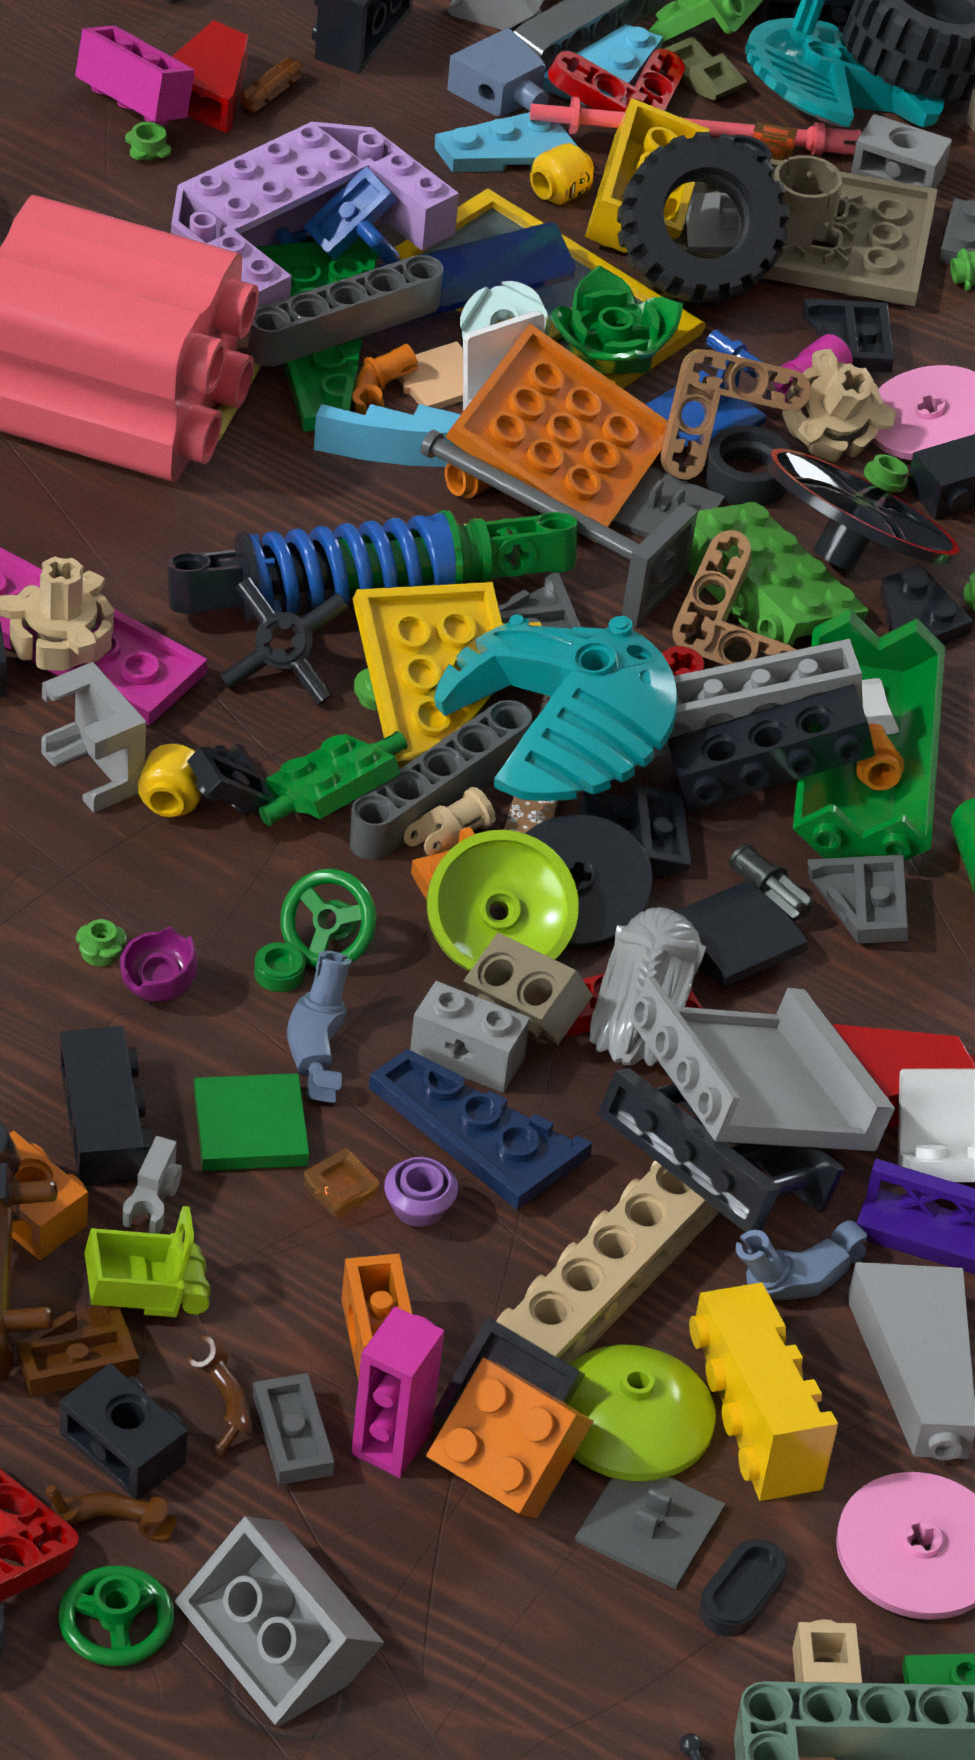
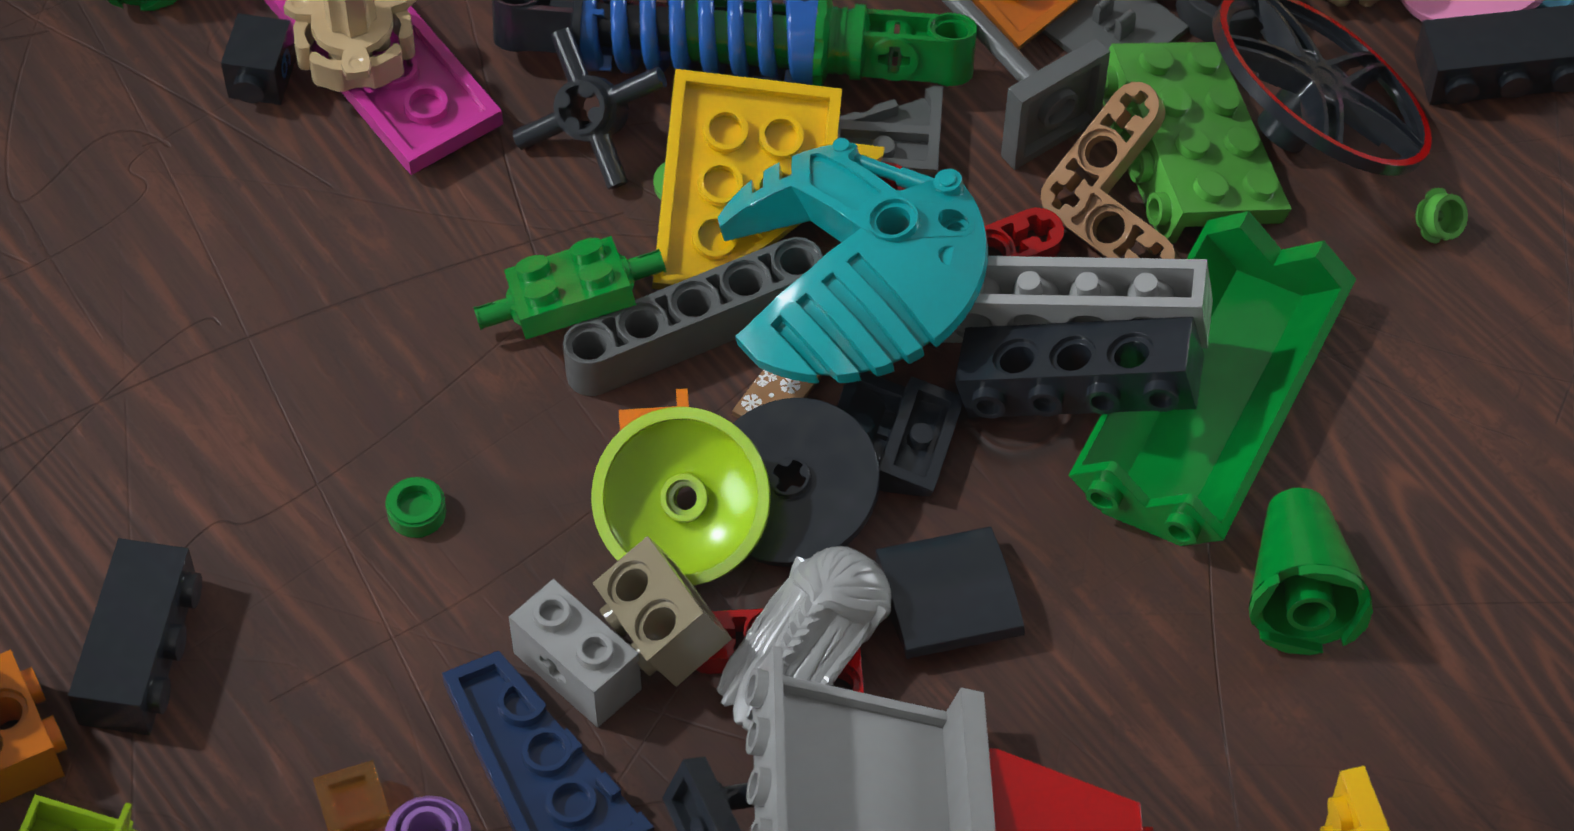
camera: 25 degrees right, 10 degrees up
(101, 942) = (236, 441): bright green plate -> none
(103, 728) = (327, 181): light grey panel -> none
(156, 1179) = (144, 748): light grey plate -> none
(159, 965) = (275, 477): magenta hair -> none
(168, 781) = (394, 251): yellow head -> none
(231, 778) = (455, 263): black wing -> none
(250, 1122) = (293, 695): green tile -> none
(315, 1024) = (413, 593): sand blue arm -> none
(346, 914) = (487, 465): green piece -> none
(444, 823) = (688, 370): tan piece -> none
(771, 881) = (1018, 536): pearl dark grey axle -> none
(865, 895) = (1127, 580): dark grey wing -> none
(876, 705) = (1241, 335): white sticker -> none
(886, 767) = (1216, 407): orange cone -> none
(887, 473) = (1389, 38): bright green plate -> none
(917, 595) = (1360, 220): black wing -> none

